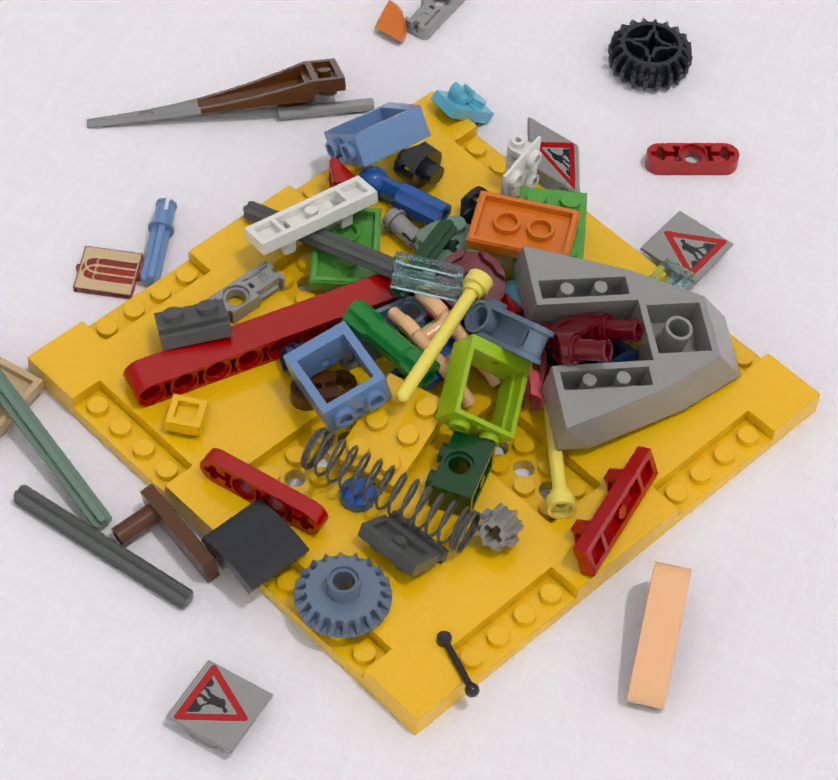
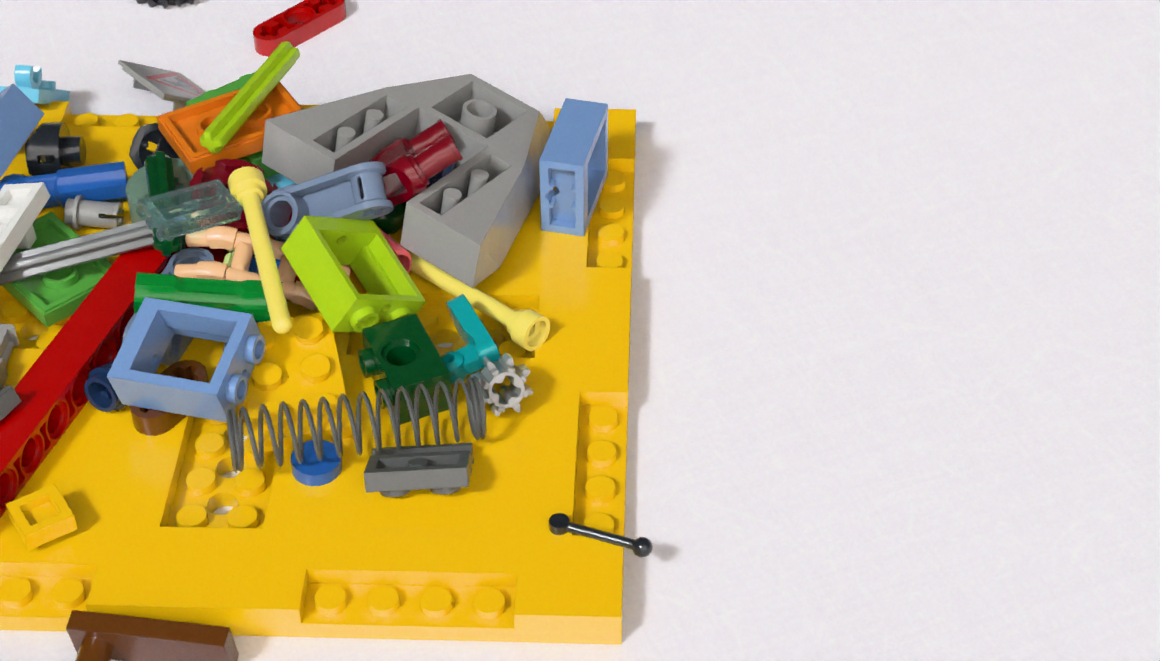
camera: 40 degrees left, 10 degrees down
(254, 484) = (214, 519): red beam -> none
(255, 545) = (263, 581): black slope -> none
(343, 611) = (411, 561): sand blue gear -> none
(521, 165) = (161, 83): white hinge -> none
(522, 484) = (475, 336): none -> teal piece
(543, 217) = (249, 97): none -> lime axle
(625, 492) = (594, 329): red hinge -> none
(659, 635) = (725, 341): light nougat beam -> none
(687, 244) = (375, 73): light grey piece -> none
(704, 412) = (575, 164): none -> medium blue window

